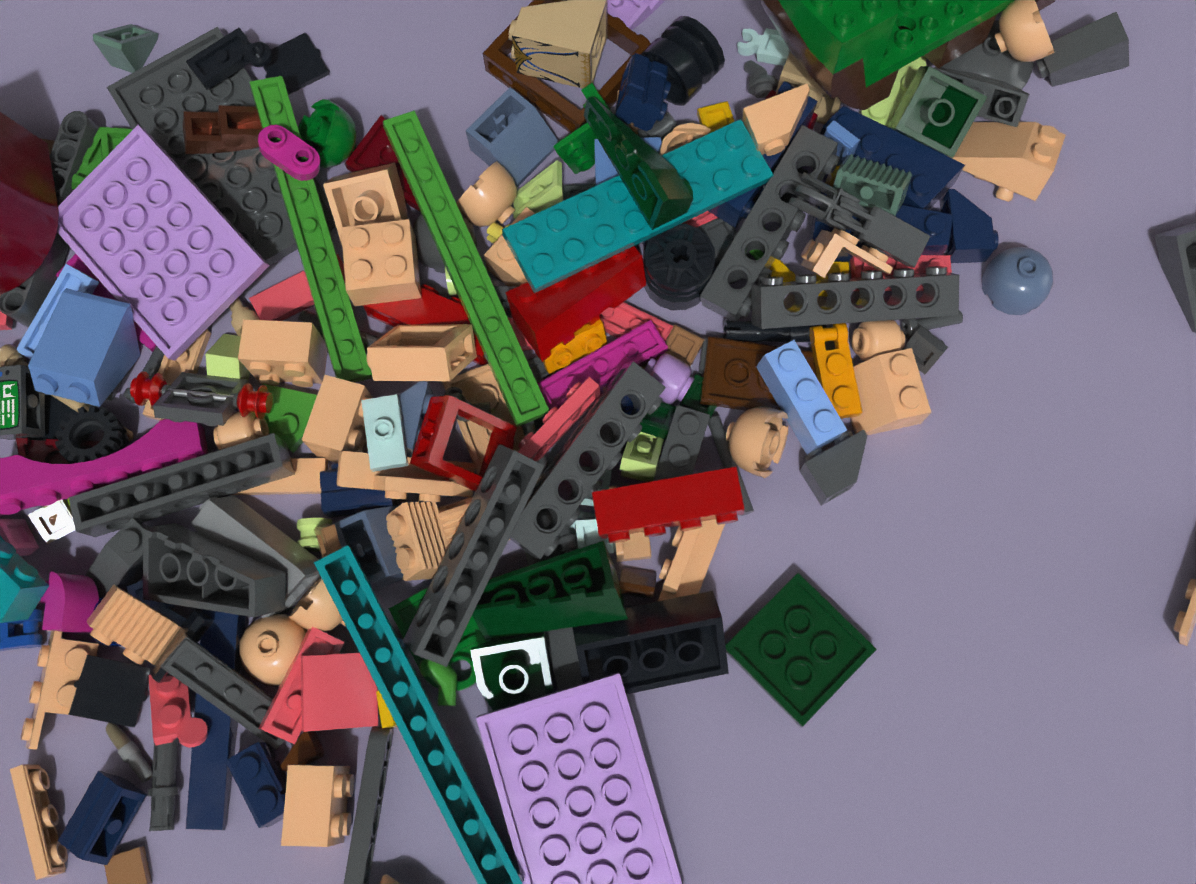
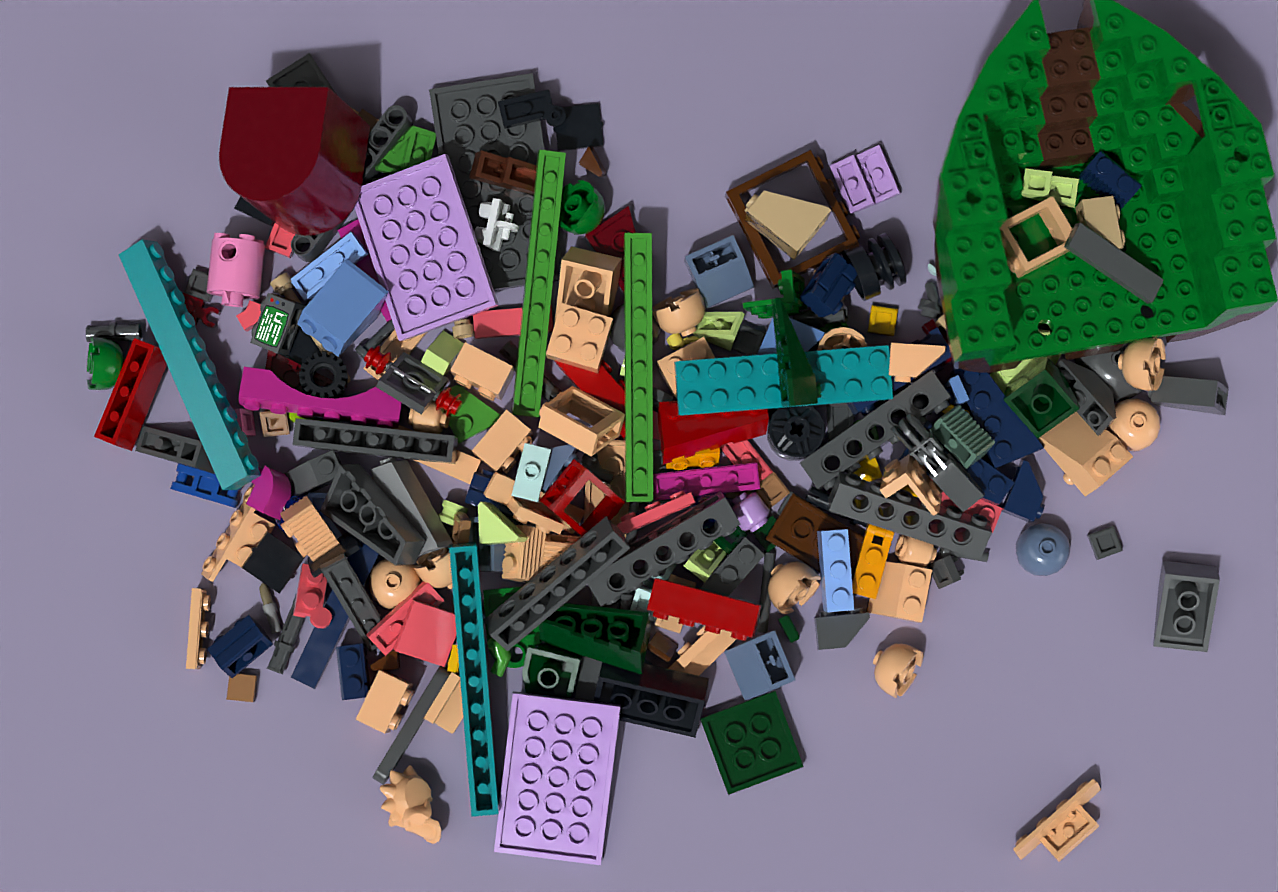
camera: 25 degrees right, 10 degrees up
(126, 46) = (458, 56): sand green slope -> none
(237, 186) = (498, 224): none -> white hips
(287, 151) = (547, 221): dark pink plate -> none
(320, 89) = (592, 162): none -> reddish brown slope
(369, 520) = (496, 527): none -> yellowish green slope
(400, 776) = (447, 707): none -> light nougat panel
(765, 549) = (759, 665): none -> sand blue slope
(777, 492) = (789, 629): none -> dark green tile
(926, 480) = (896, 668): none -> light nougat cylinder
(1049, 104) = (1135, 424): none -> light nougat cylinder
(1079, 246) = (1105, 543): none -> dark grey tile

